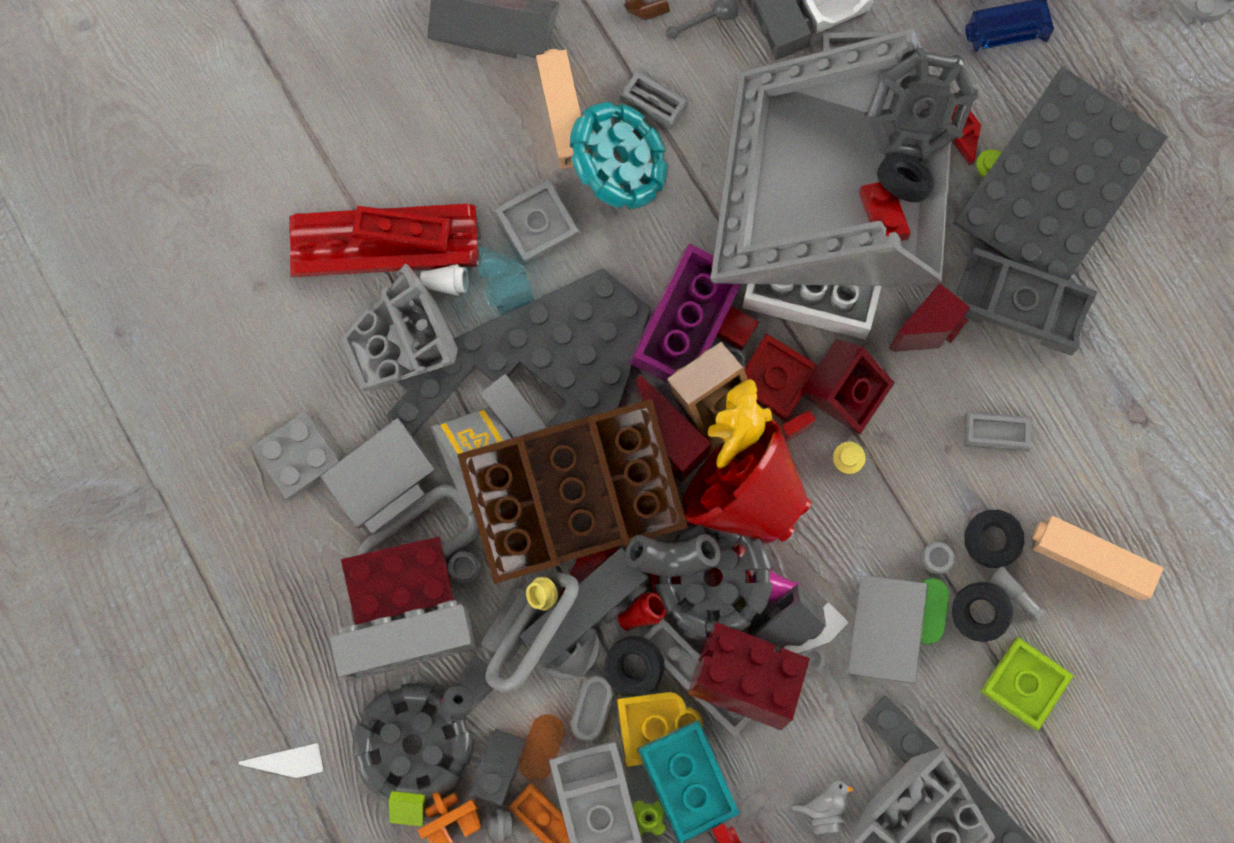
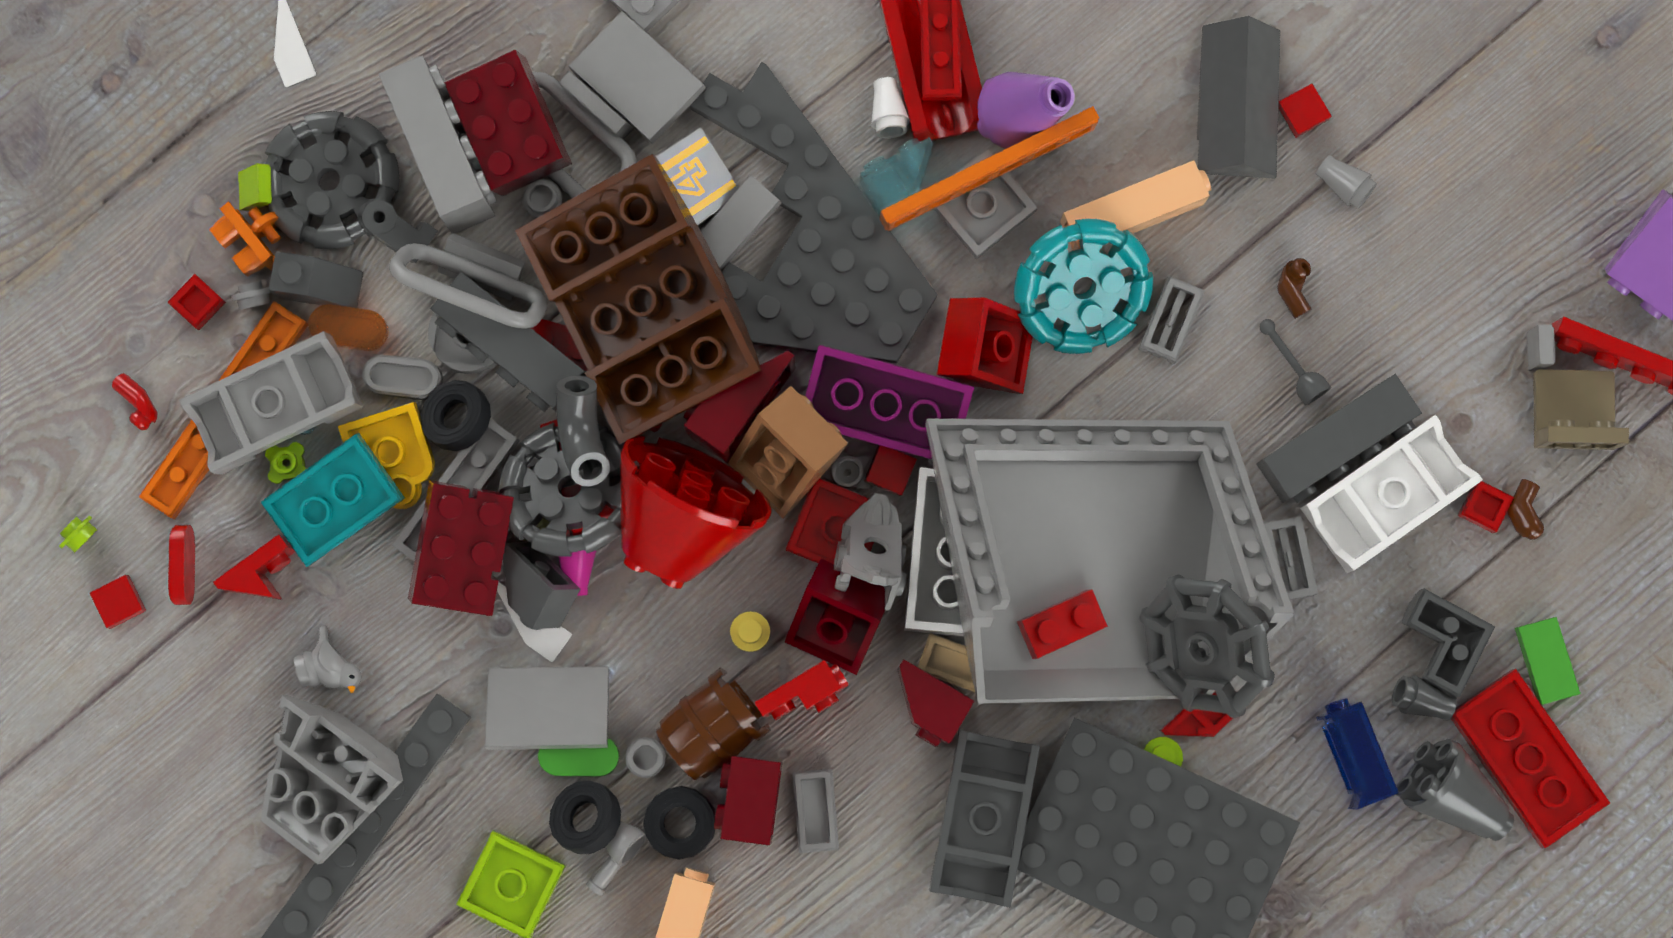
camera: 75 degrees right, 5 degrees up
(399, 335) = (805, 69): light grey wedge -> none
(469, 171) = (1021, 105): none -> medium lavender cone
(514, 207) = (989, 169): none -> orange tile
(542, 593) = (515, 289): light yellow plate -> none
(644, 611) = (519, 415): red cone -> none
(650, 239) = (984, 345): none -> red slope
(740, 422) = (747, 484): yellow piece -> none
(798, 425) = (777, 561): red tile -> none
(820, 338) = (877, 523): none -> light grey piece
(892, 181) = (1093, 638): black tyre -> none
(897, 307) = (946, 662): none -> tan tile
(904, 411) = (814, 687): none -> red plate
(924, 497) = (710, 726): none -> reddish brown piece
(988, 474) = (749, 801): none -> dark red brick

